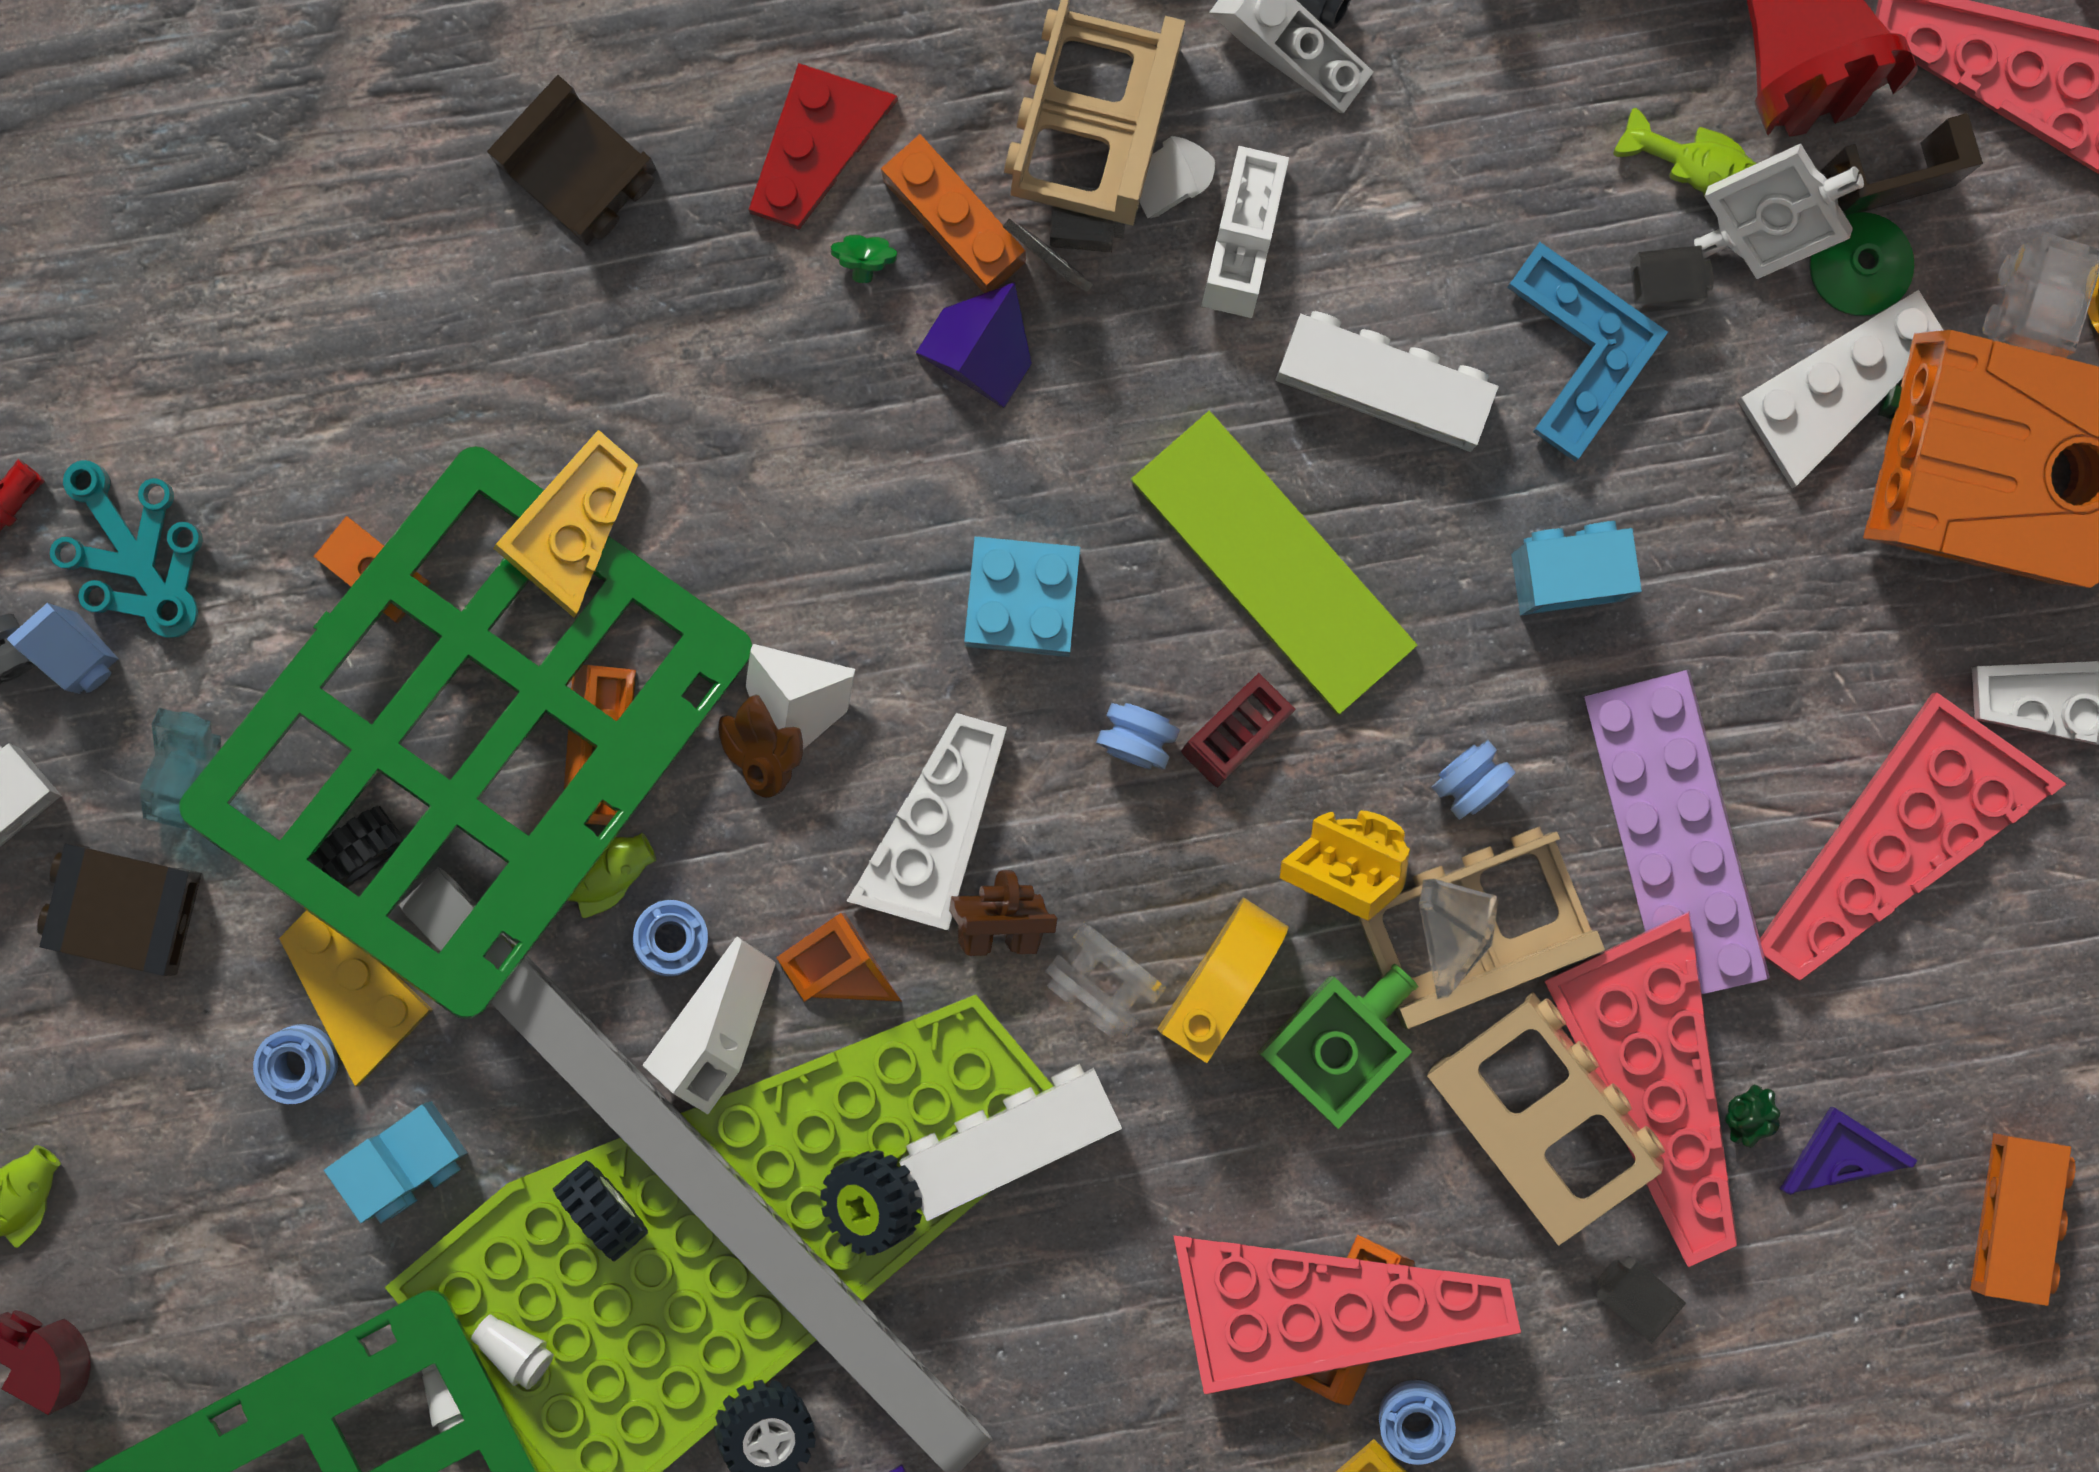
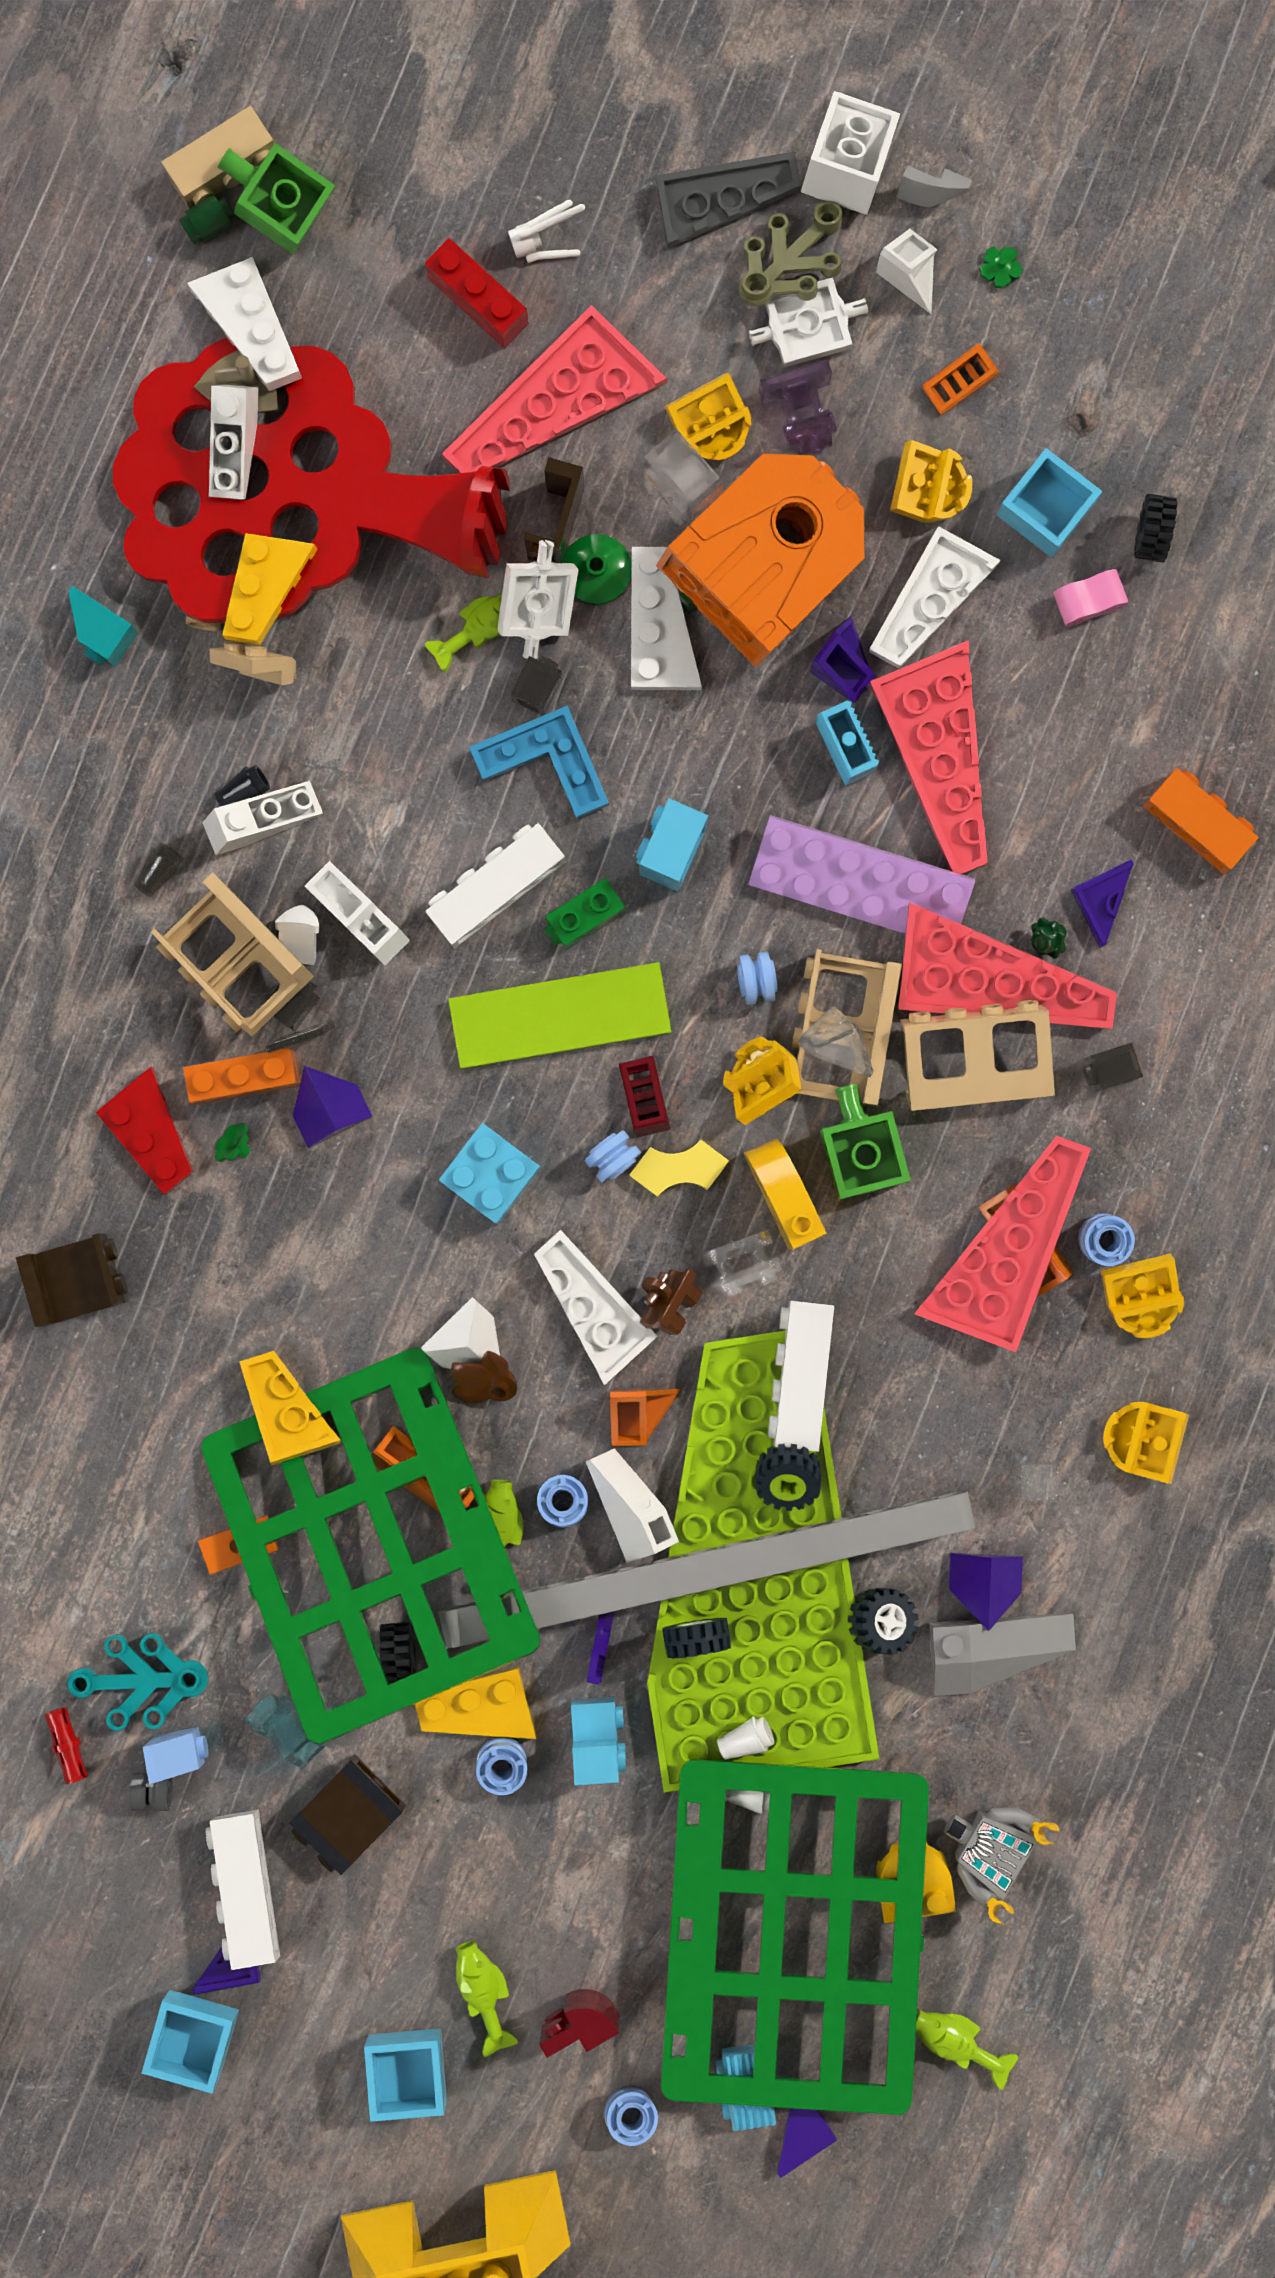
camera: 50 degrees left, 0 degrees up
(514, 1097) = (600, 1648): none -> dark purple tile
(1191, 848) = (662, 1170): none -> light yellow tile
(1418, 514) = (584, 915): none -> green brick
(1841, 710) = (847, 742): none -> medium azure brick
(1938, 644) = (843, 663): none -> dark purple slope

